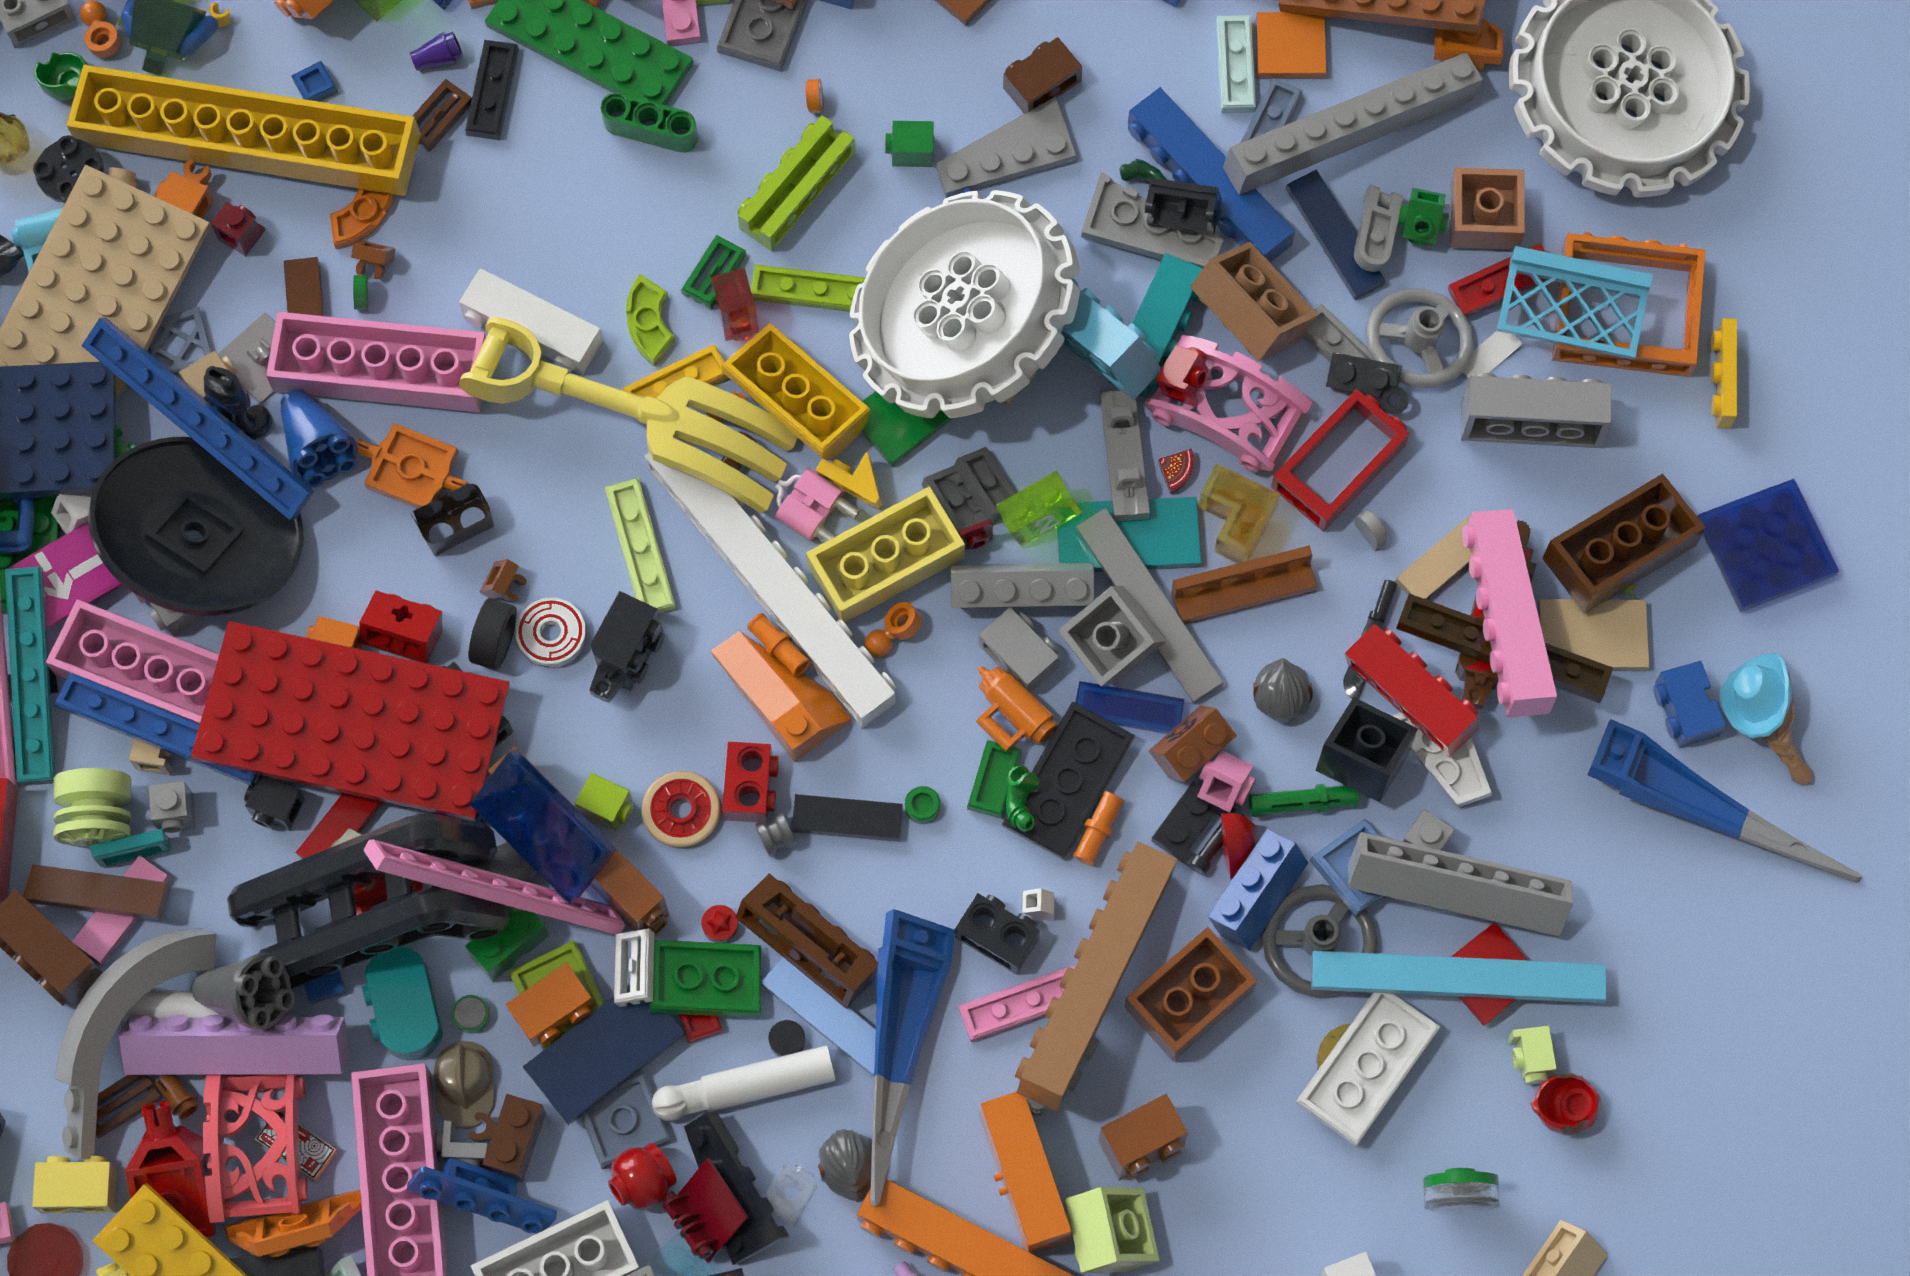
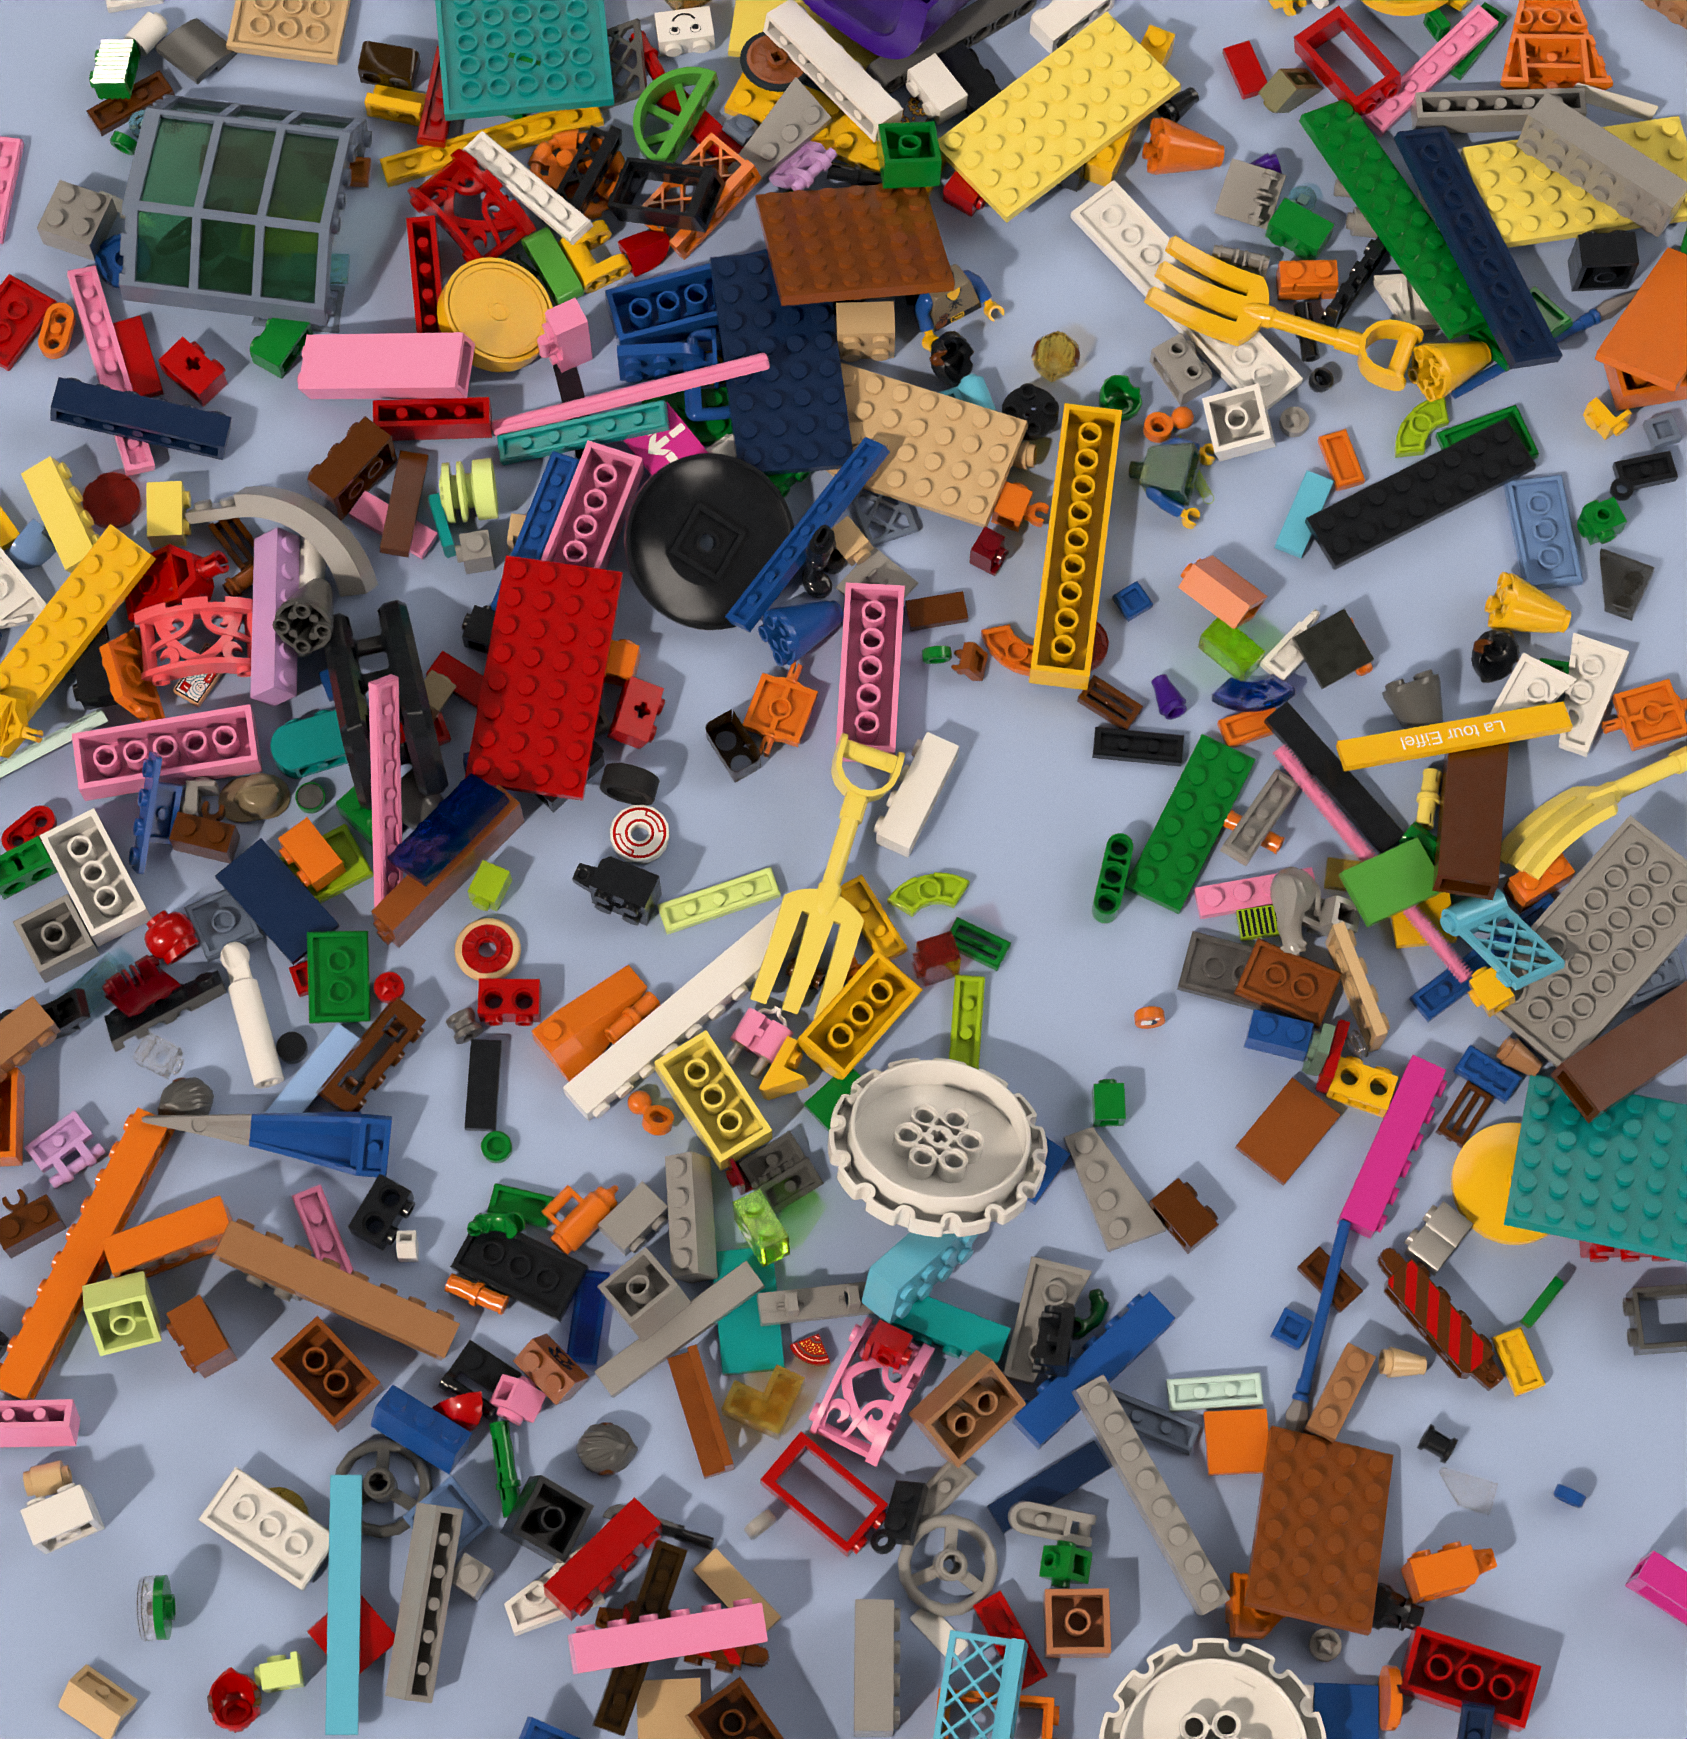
camera: 85 degrees right, 0 degrees up
(499, 580) = (683, 788): dark orange tile -> none
(640, 965) = (345, 917): white tile -> none
(795, 183) = (1063, 1006): lime brick -> none

